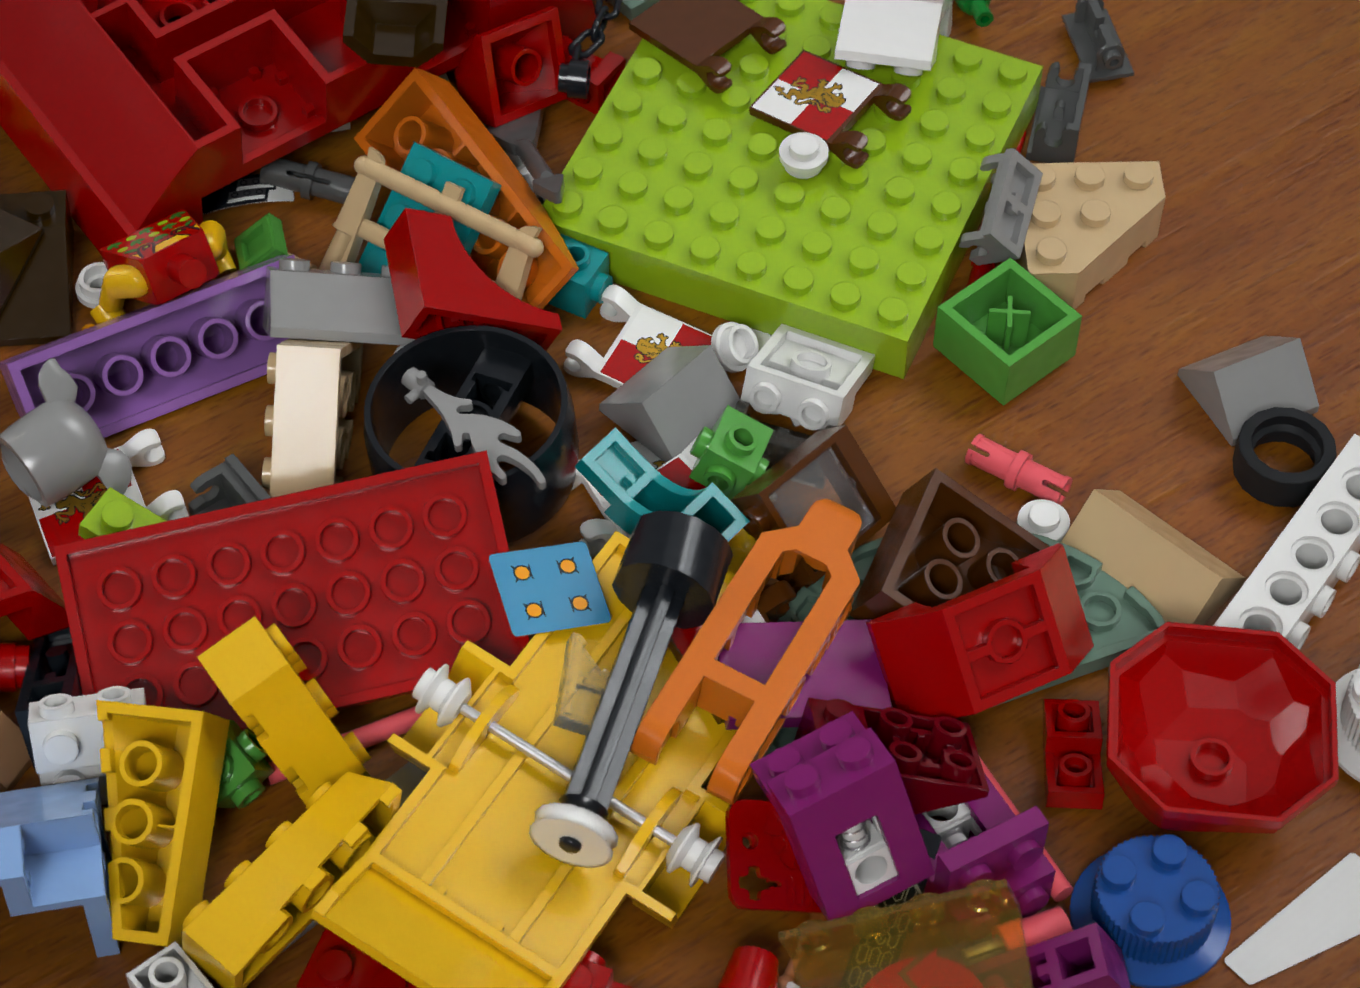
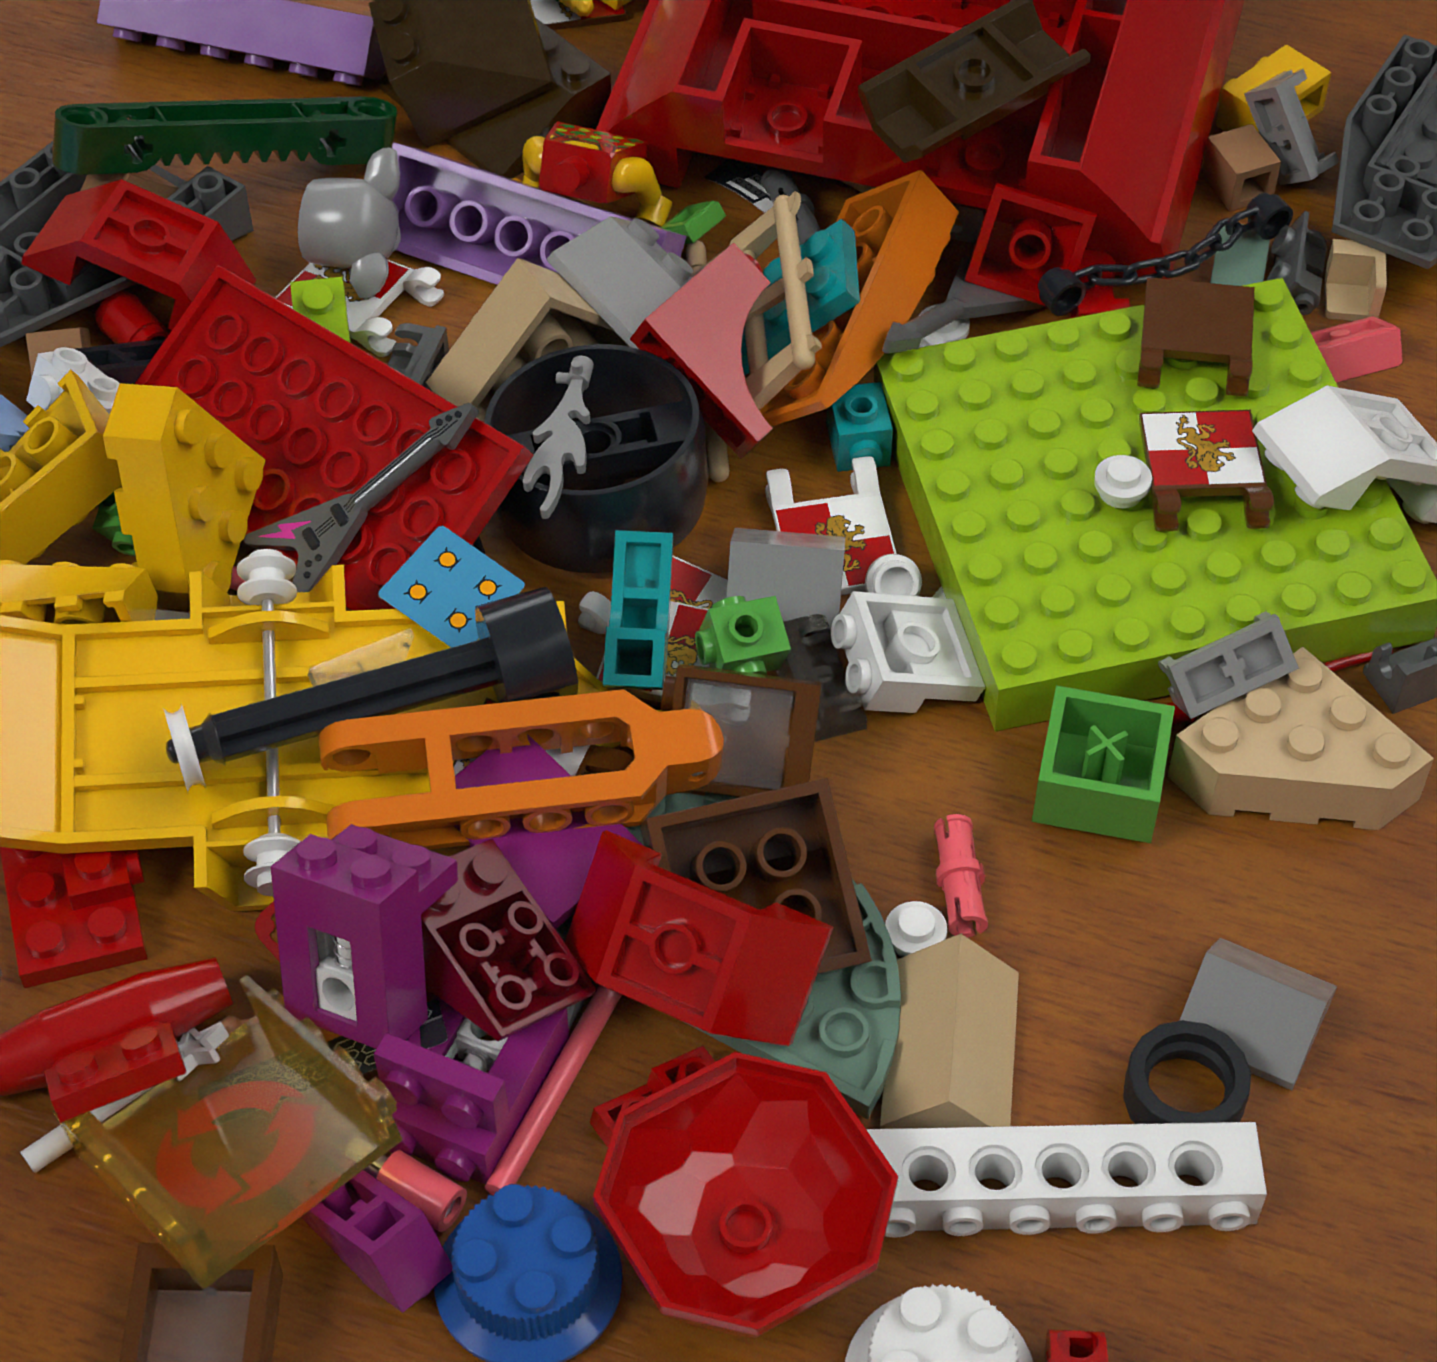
camera: 55 degrees right, 0 degrees up
(397, 639) = (327, 529): none -> dark grey piece

